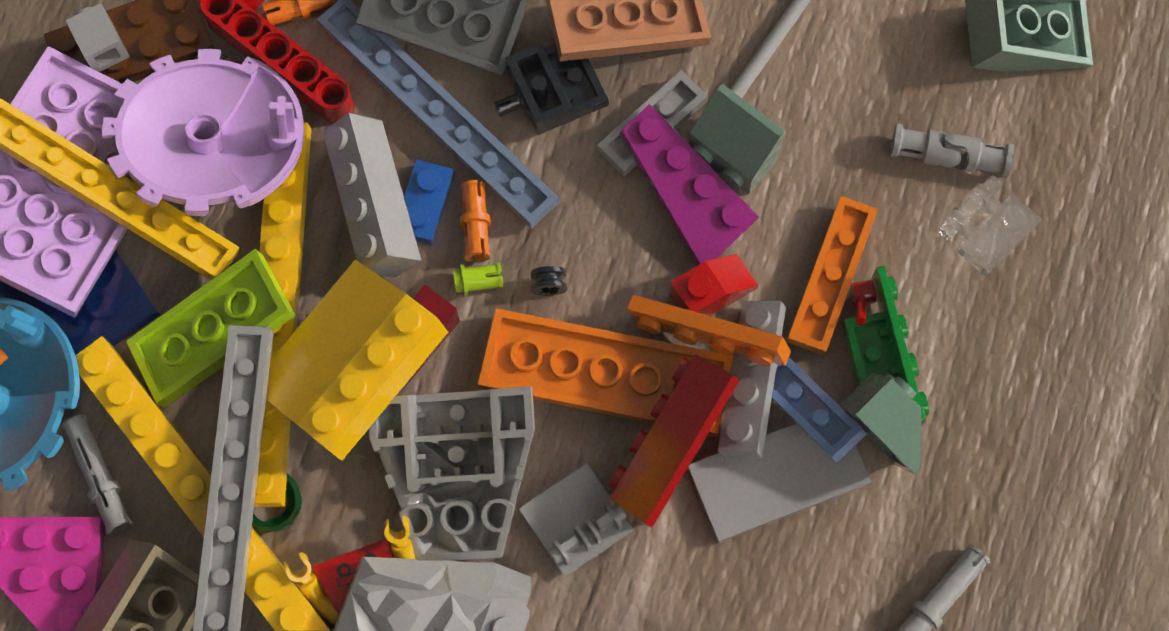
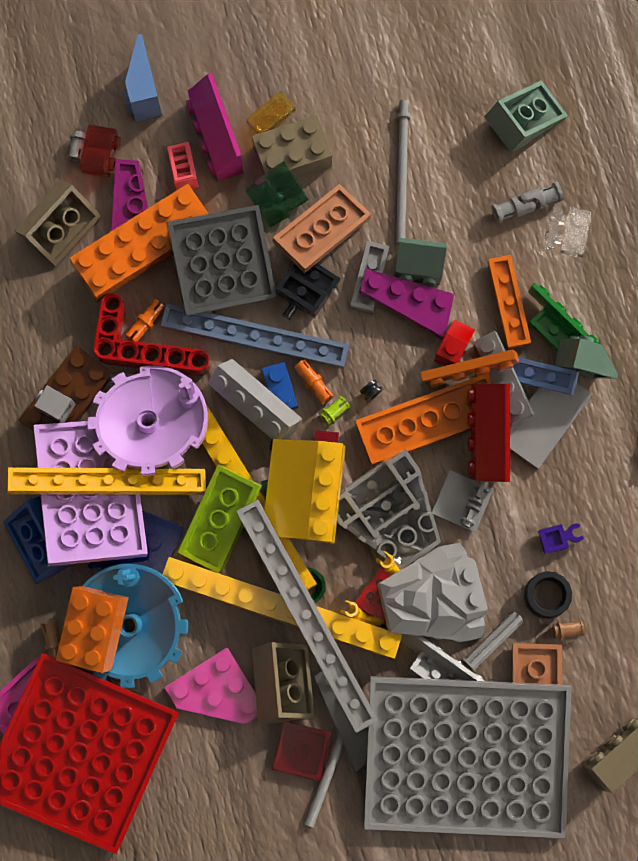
camera: 35 degrees left, 5 degrees up
(103, 489) = (234, 643): light grey pin -> none
(864, 294) = (530, 302): red hand -> none

